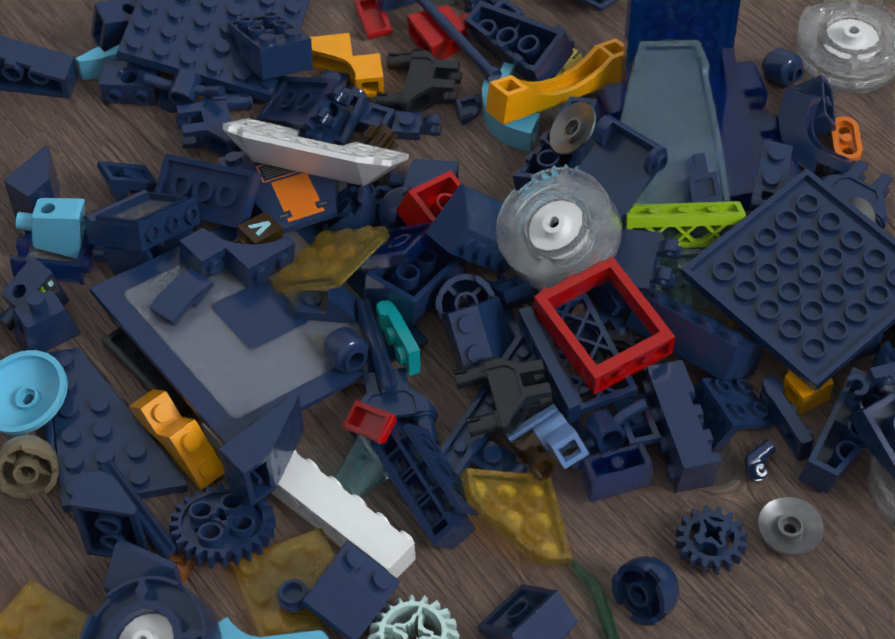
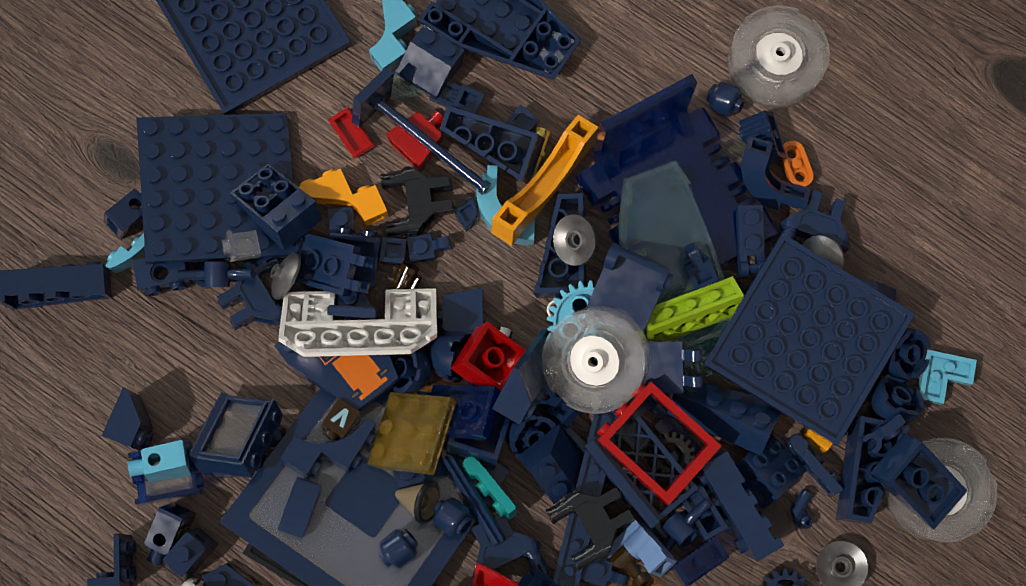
camera: 20 degrees left, 25 degrees up
(124, 177) = (200, 382): dark blue slope -> none
(218, 61) = (241, 245): none -> clear bracket
(222, 192) = (293, 386): dark blue plate -> none
(252, 103) = (284, 275): none -> flat silver dish
(273, 358) = (398, 548): none -> dark blue head
(309, 131) = (352, 311): none -> dark blue tile
(317, 323) = (420, 500): none -> dark tan hat

